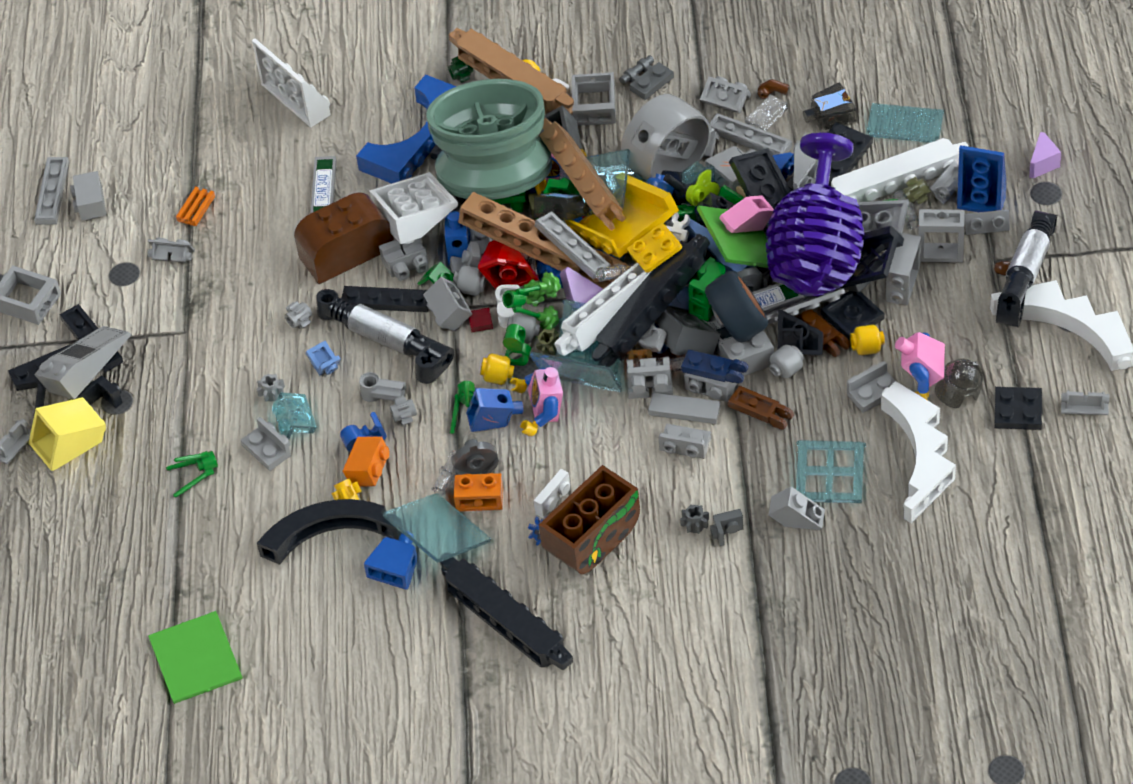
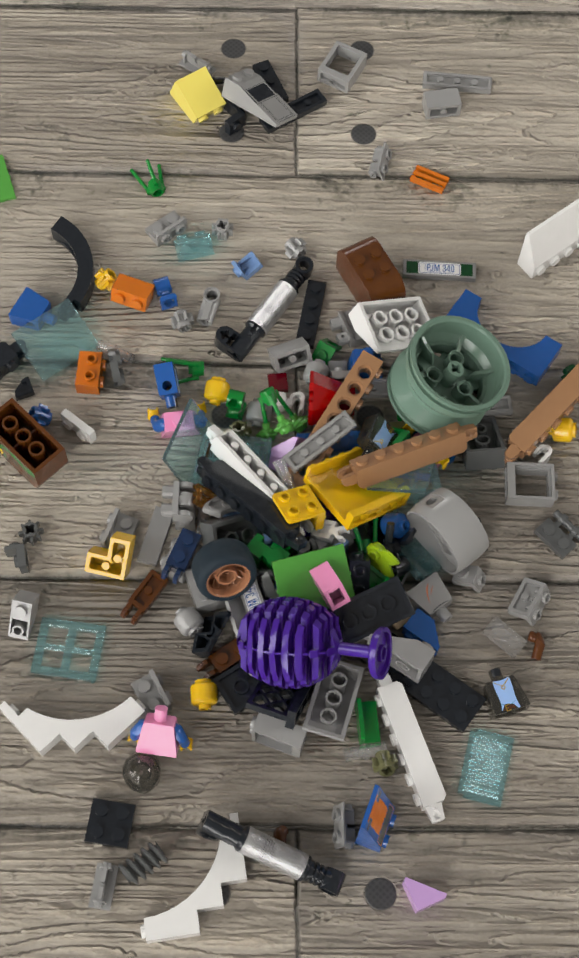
camera: 85 degrees right, 15 degrees up
(501, 559) = (24, 389): none -> black tile
(723, 428) = (113, 561): none -> yellow brick
(749, 135) = (477, 619): light grey tile -> none
(946, 183) = (399, 797): light grey hinge -> none
(953, 223) = (309, 771): light grey window -> none
(1056, 369) = (143, 863): none -> dark grey piece

